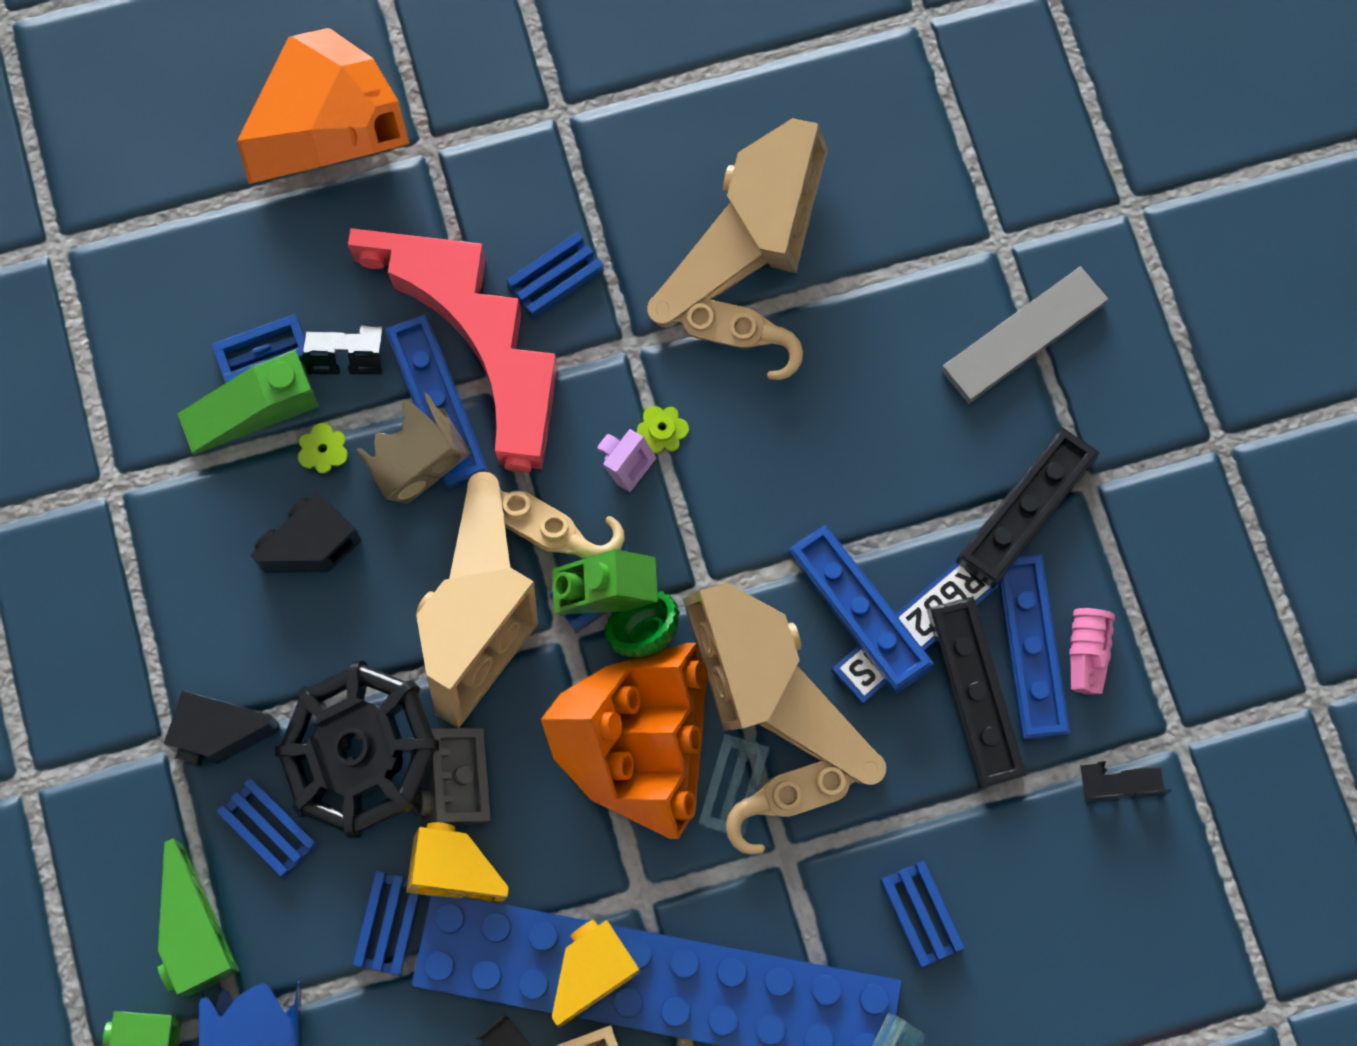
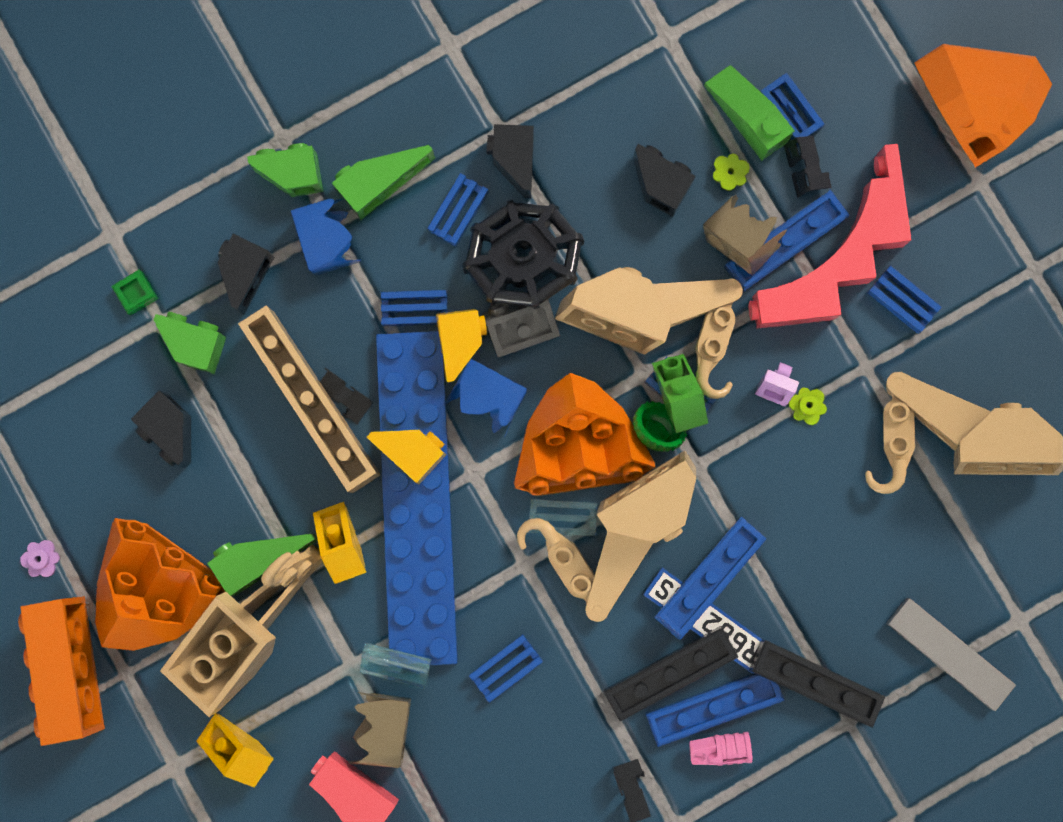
camera: 80 degrees right, 10 degrees up
(537, 844) = (487, 391): none -> blue piece

